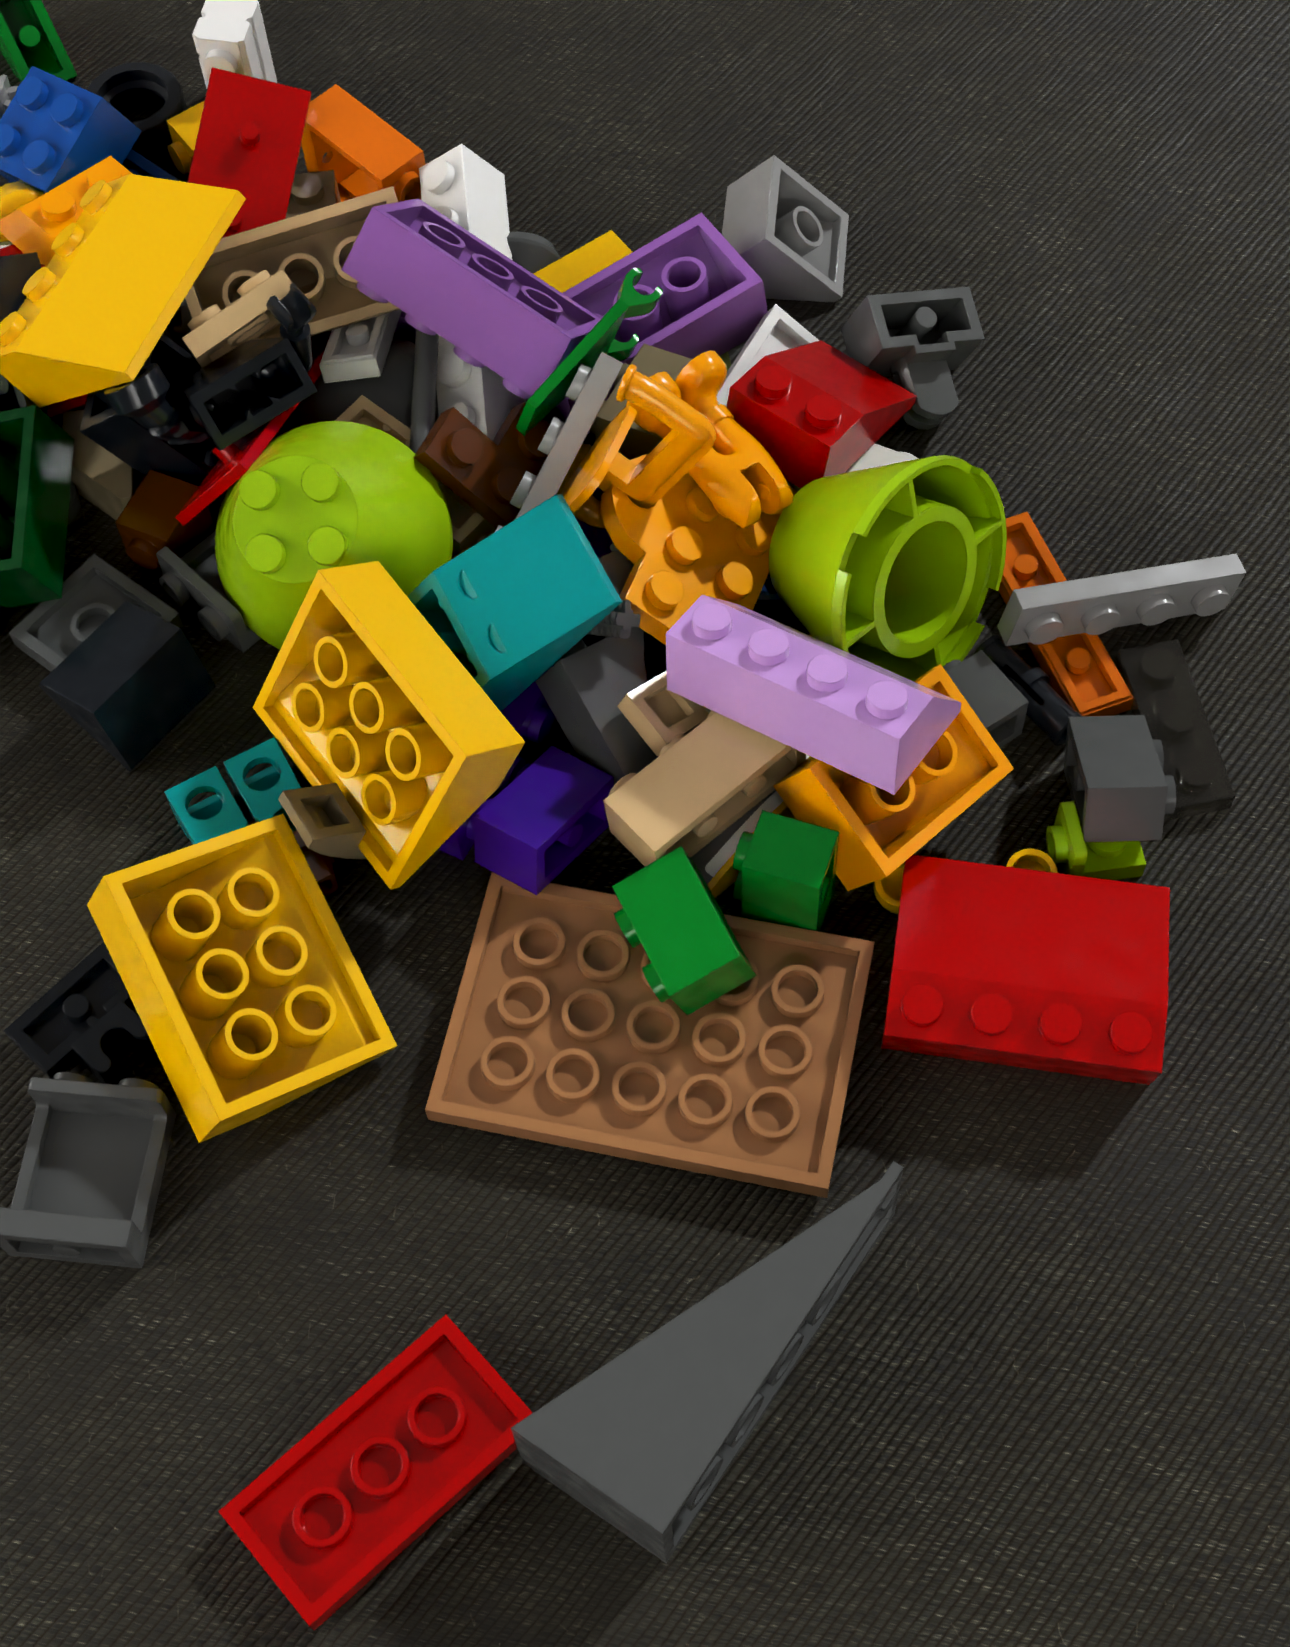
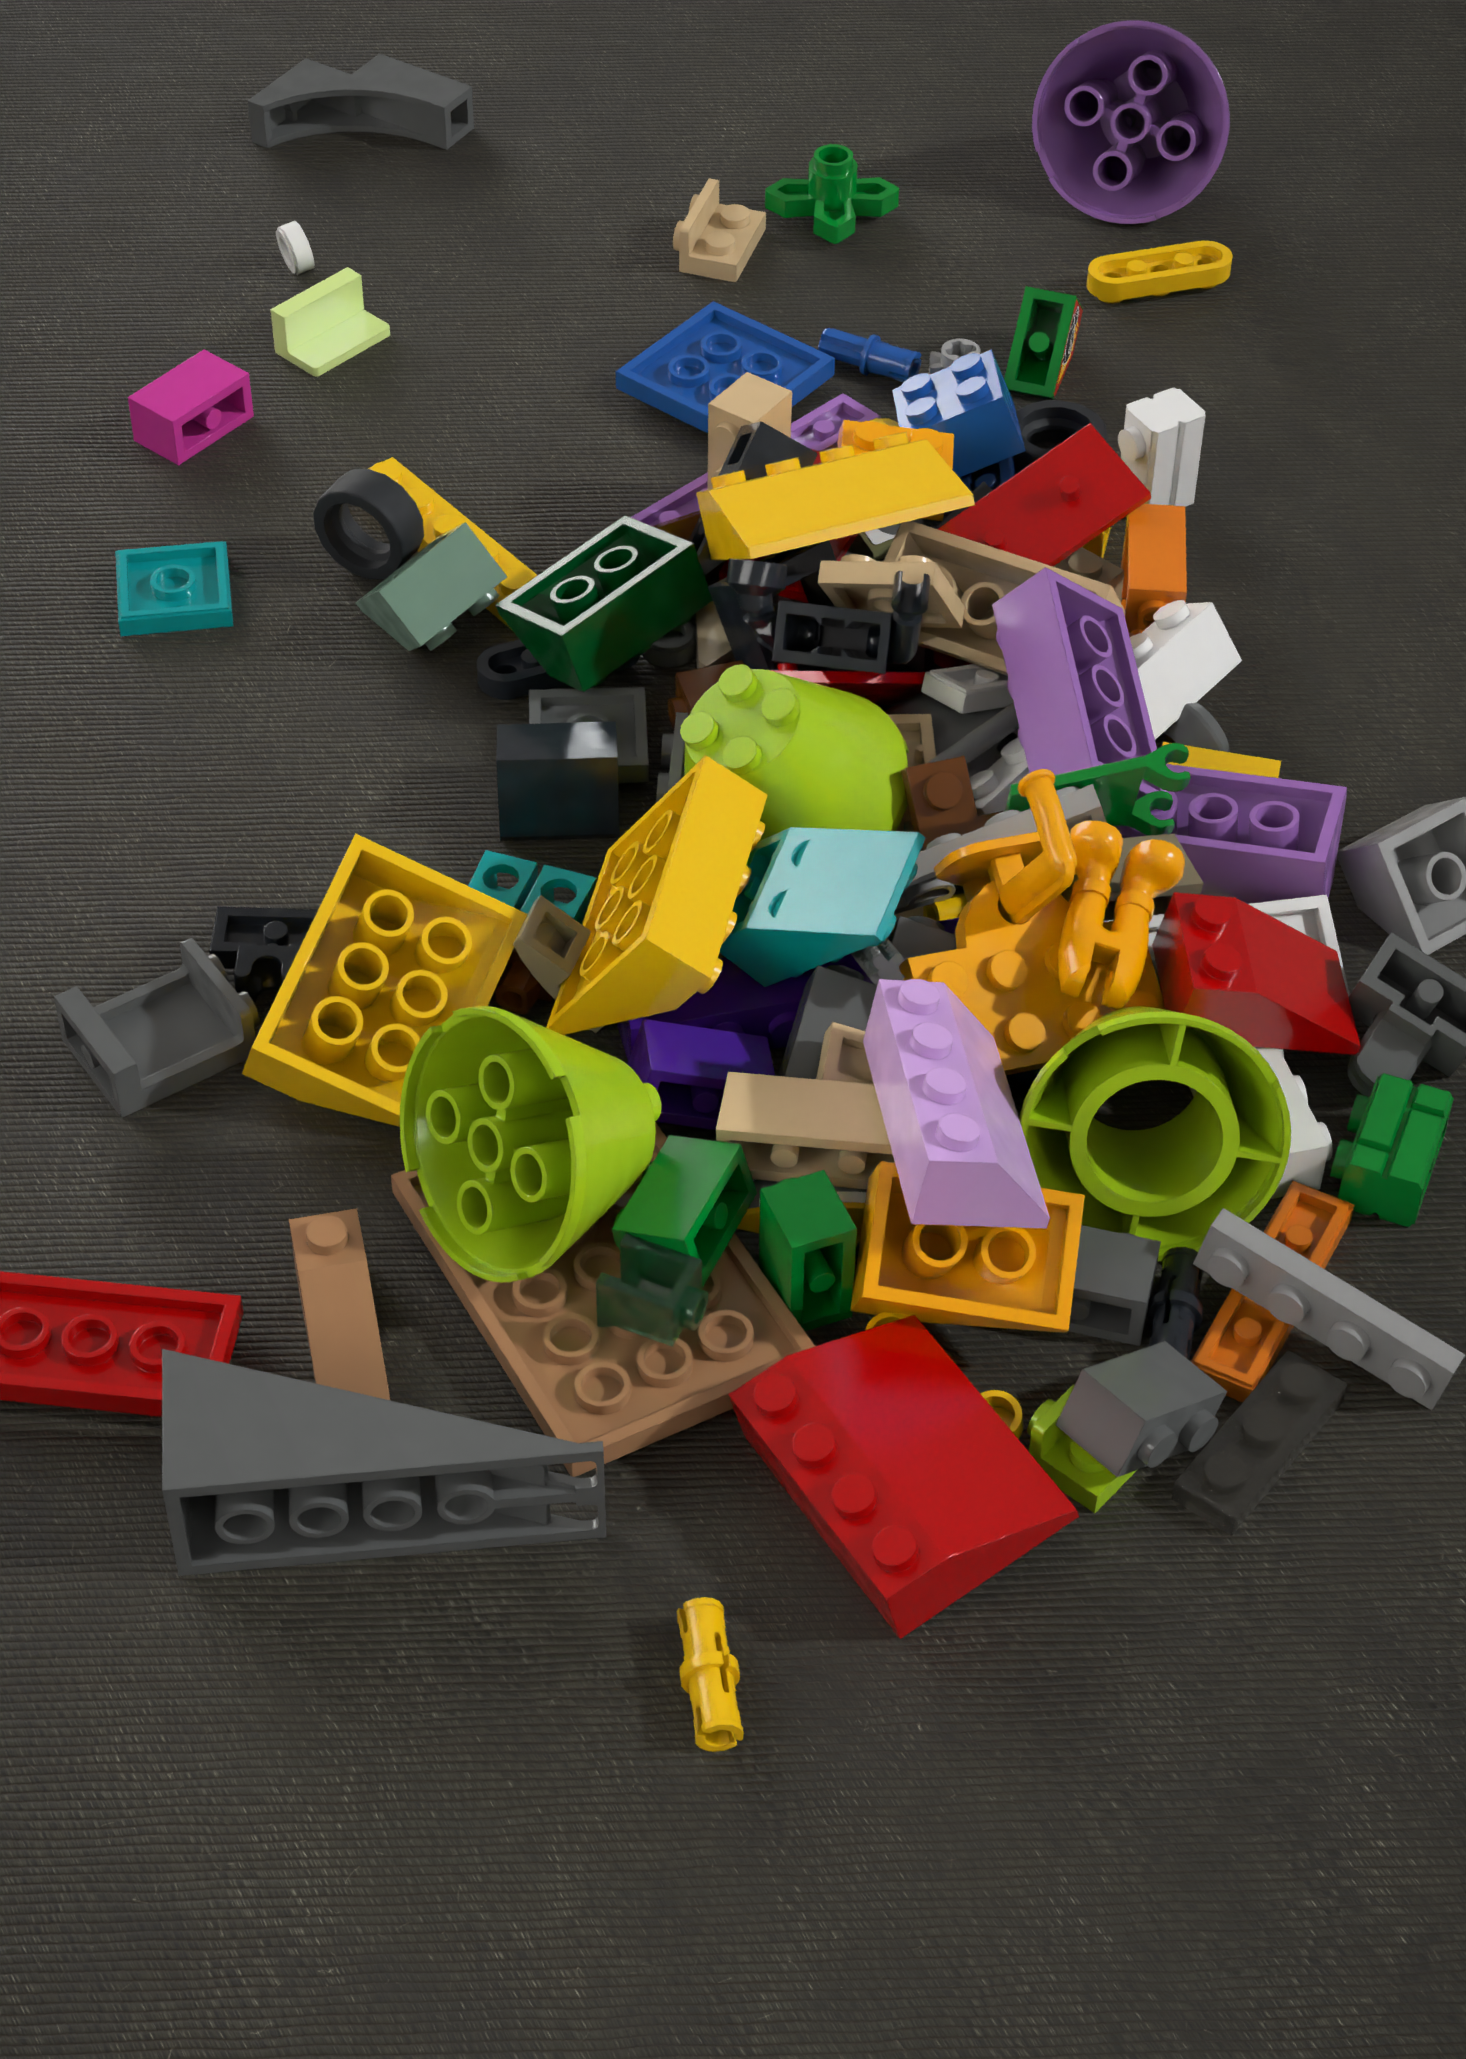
camera: 45 degrees right, 15 degrees down
(533, 1254) = (338, 1303): none -> medium nougat slope
(543, 1003) = (519, 1138): none -> lime cone
(737, 1012) = (655, 1294): none -> clear green window
(1010, 445) = (1393, 1148): none -> green brick
(1092, 1238) = (709, 1674): none -> yellow pin

